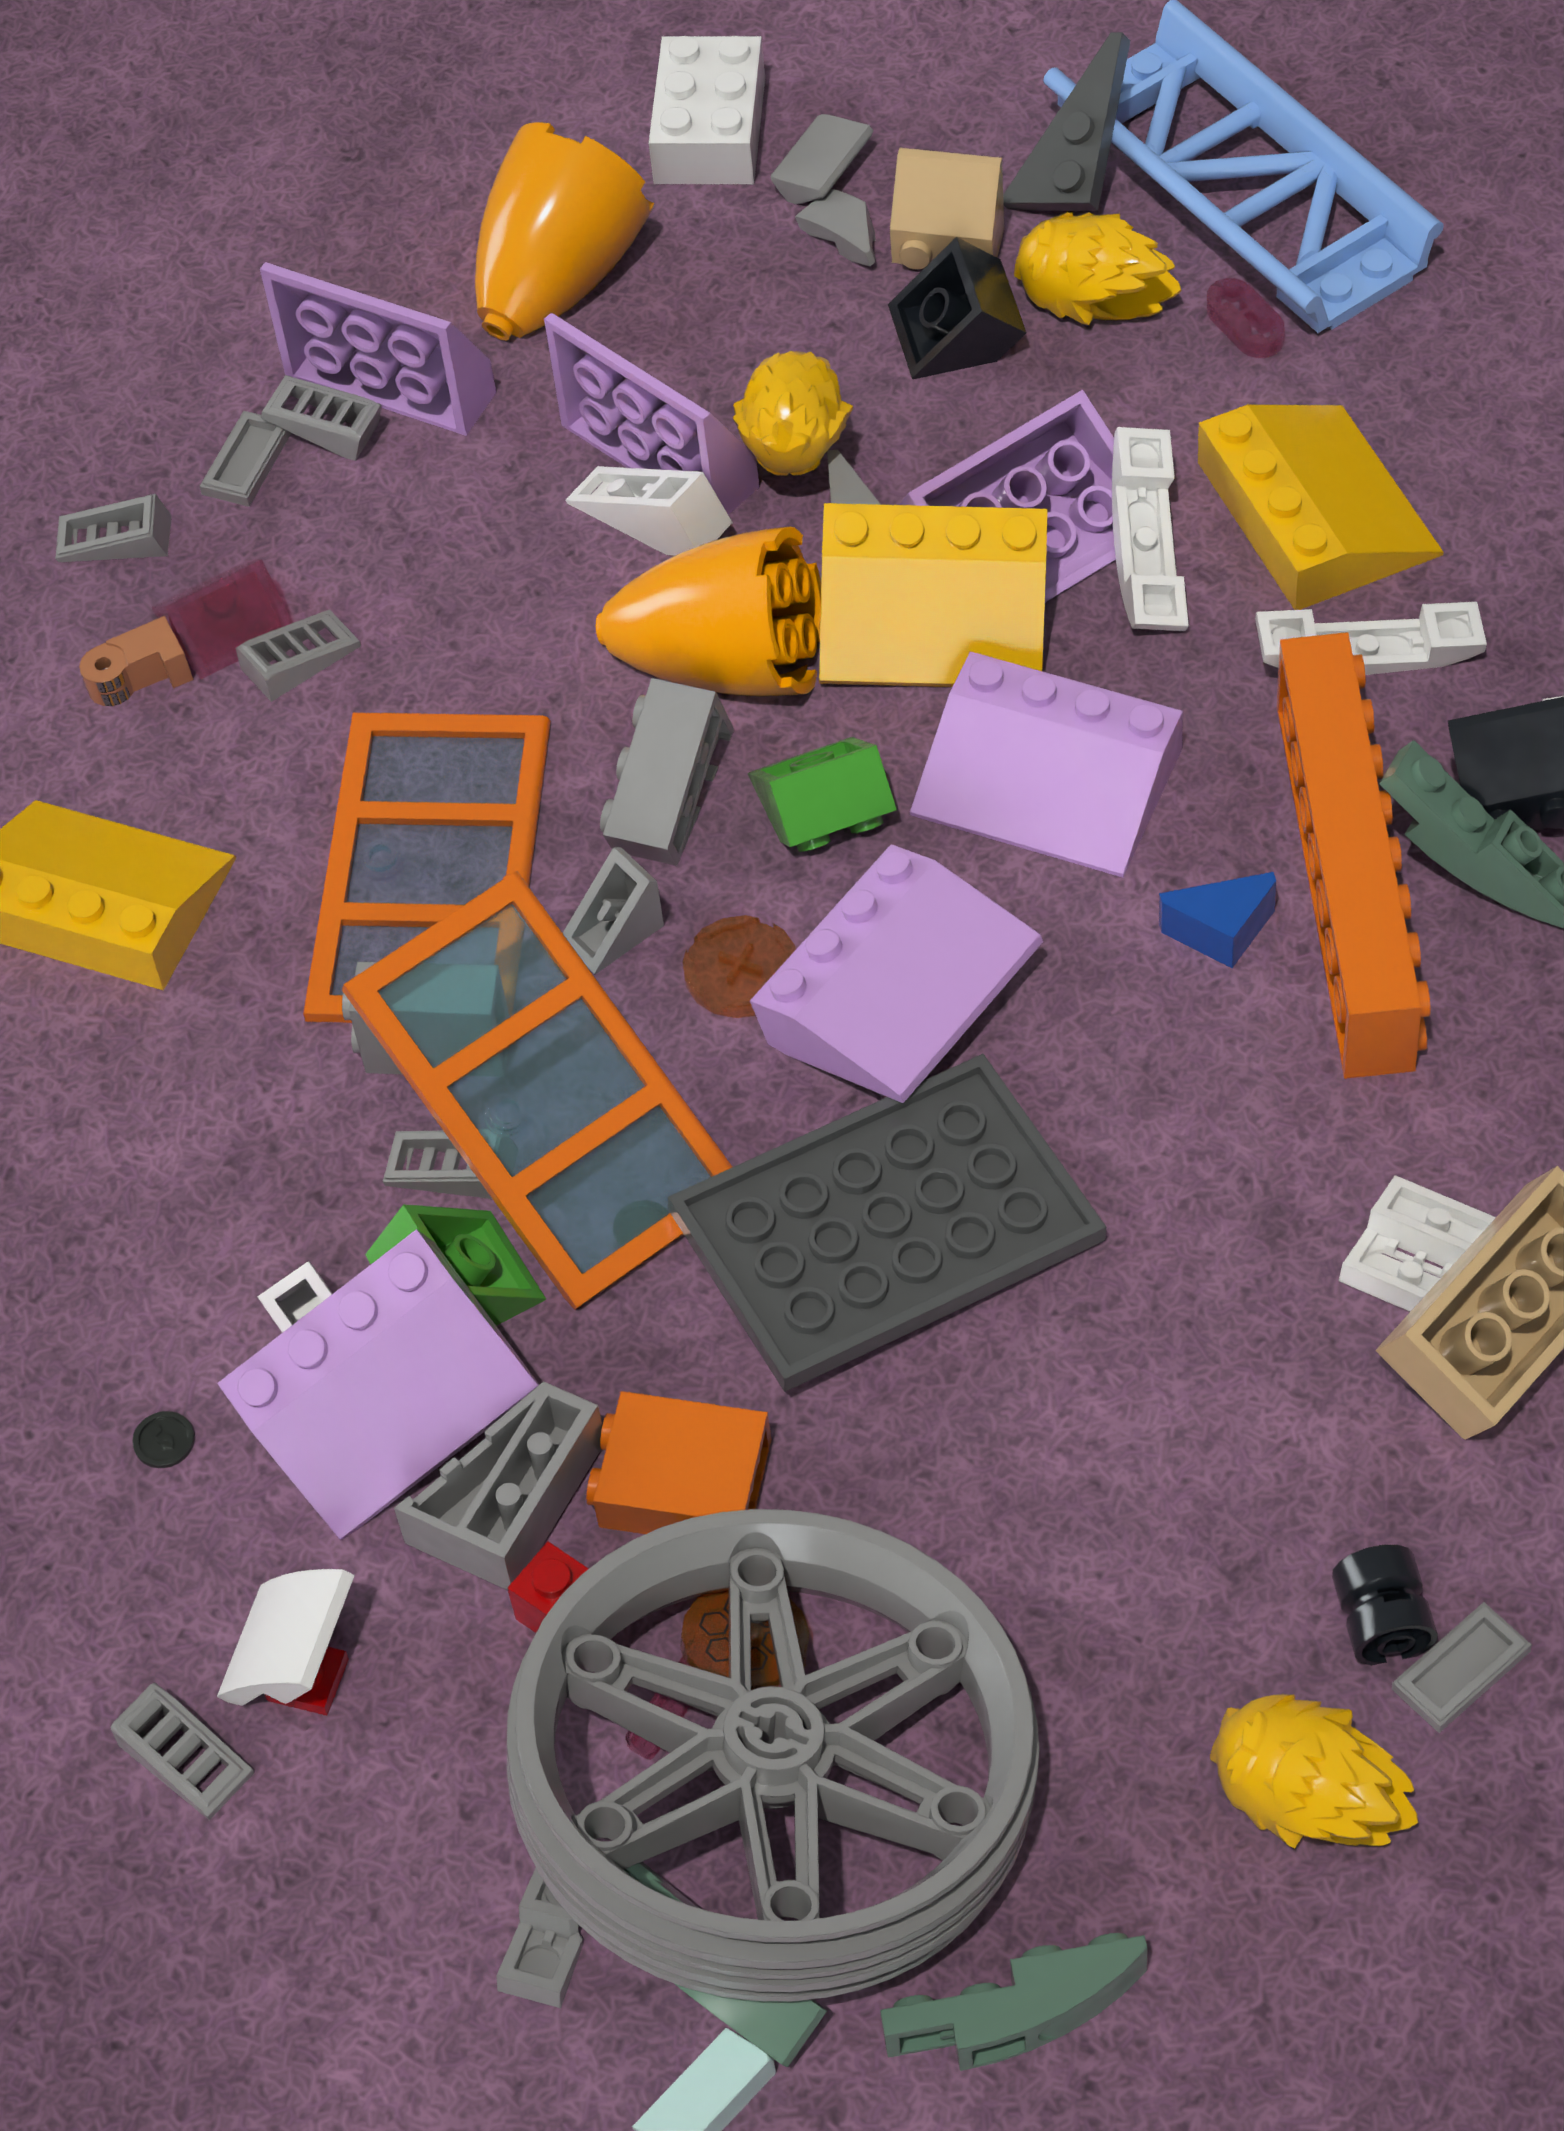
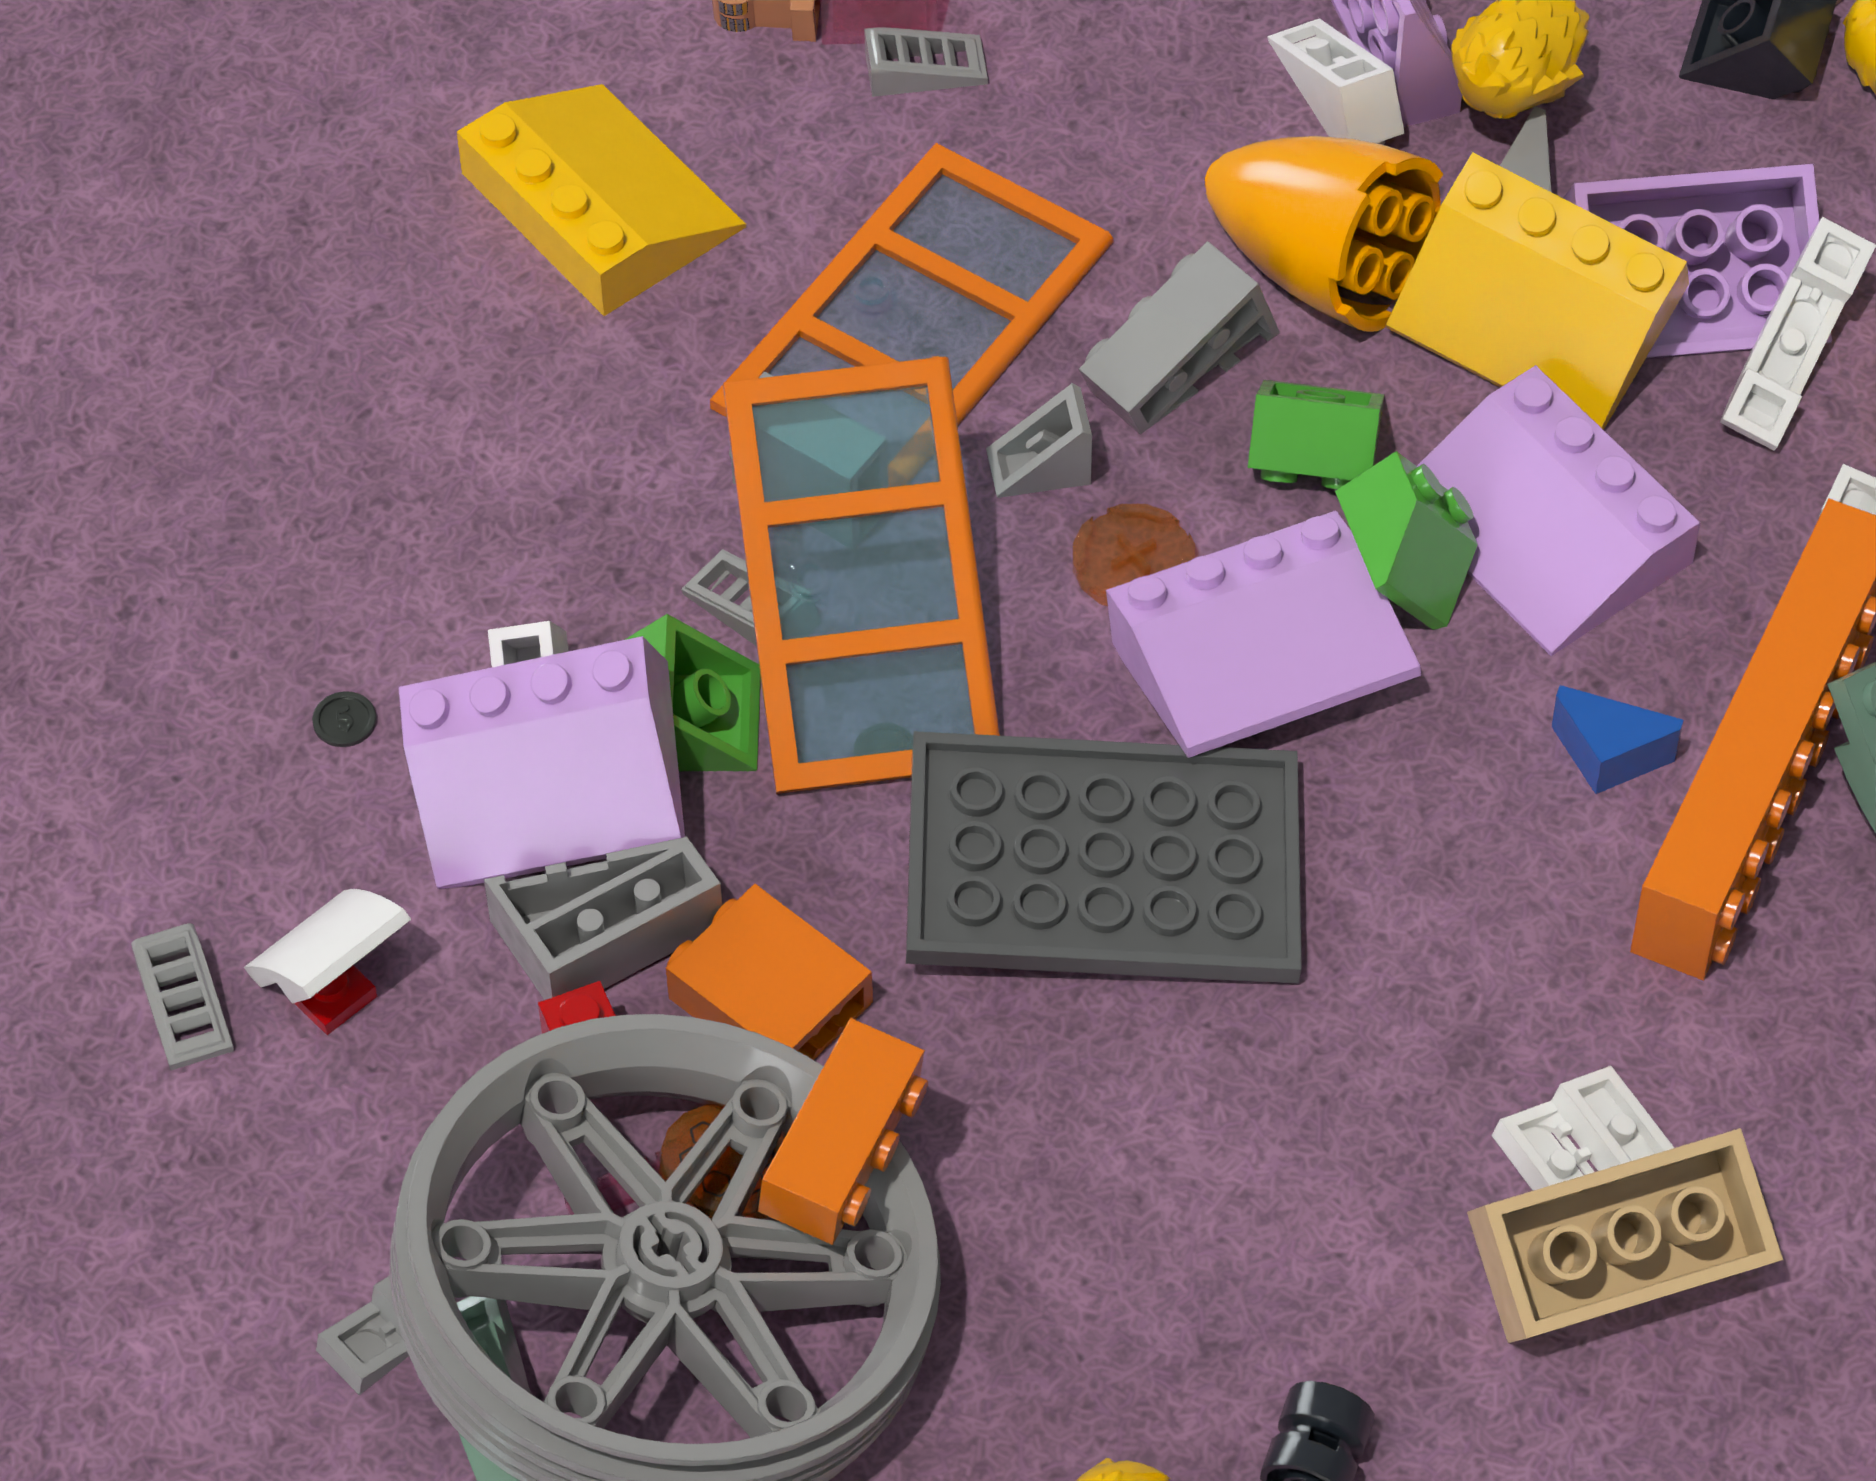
camera: 25 degrees right, 0 degrees up
(858, 1555) = (843, 1132): none -> orange brick
(963, 832) = (1411, 536): none -> bright green slope

